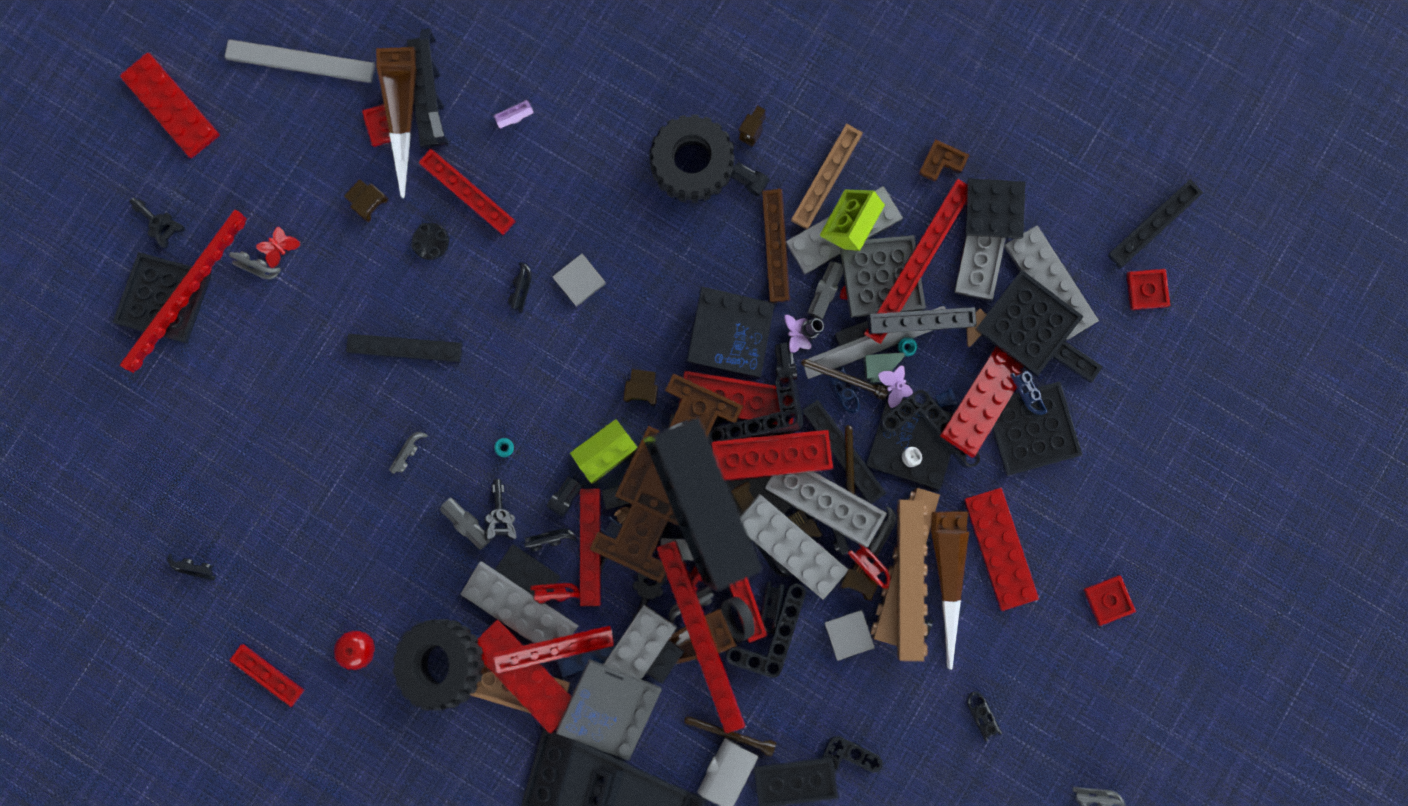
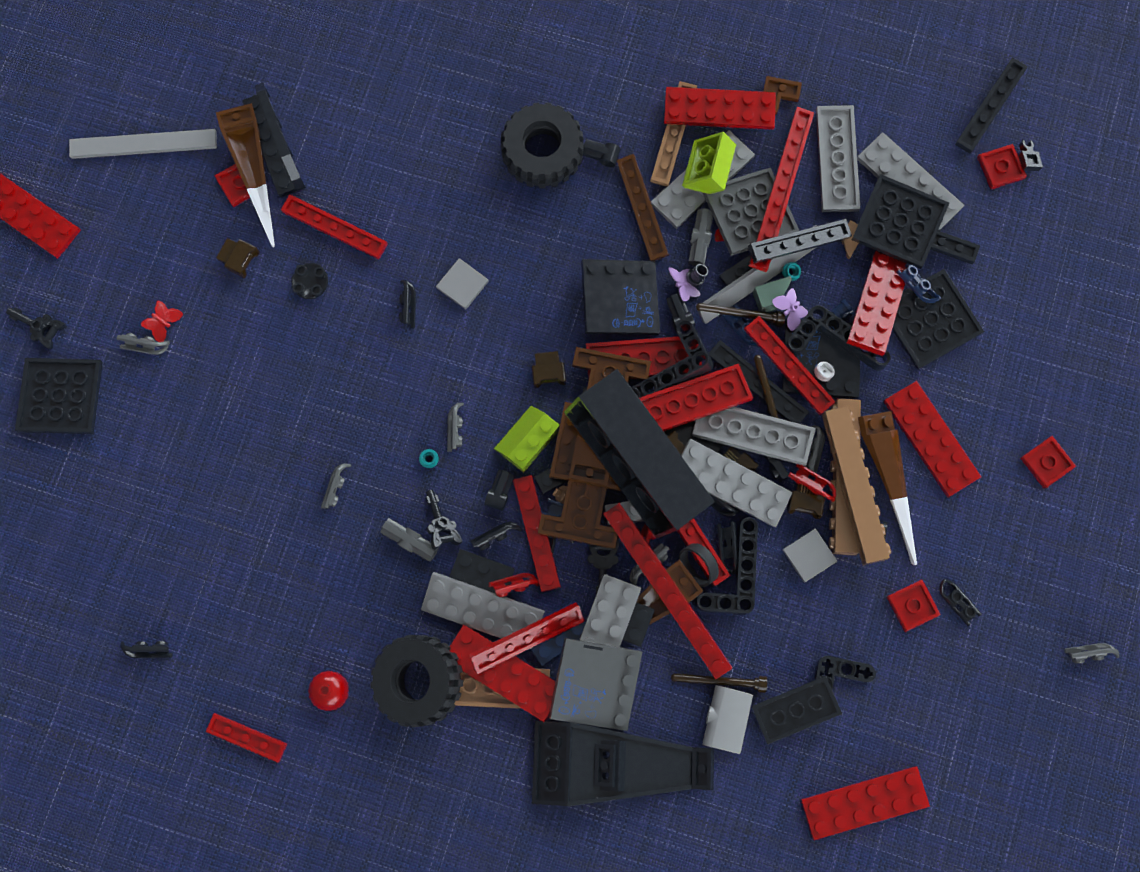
camera: 15 degrees left, 5 degrees down
(181, 295) = (78, 386): red plate -> none
(404, 348) = (308, 387): black plate -> none
(513, 114) = (361, 145): lavender plate -> none
(537, 418) = (454, 423): none -> dark grey piece
(752, 126) = (591, 103): dark brown piece -> none
(878, 443) = (789, 365): none -> red plate
(879, 162) = (720, 108): none -> red plate
(937, 708) = (913, 605): none -> red tile
(995, 208) = (839, 125): black plate -> none
(1177, 288) = (1029, 159): none -> black plate

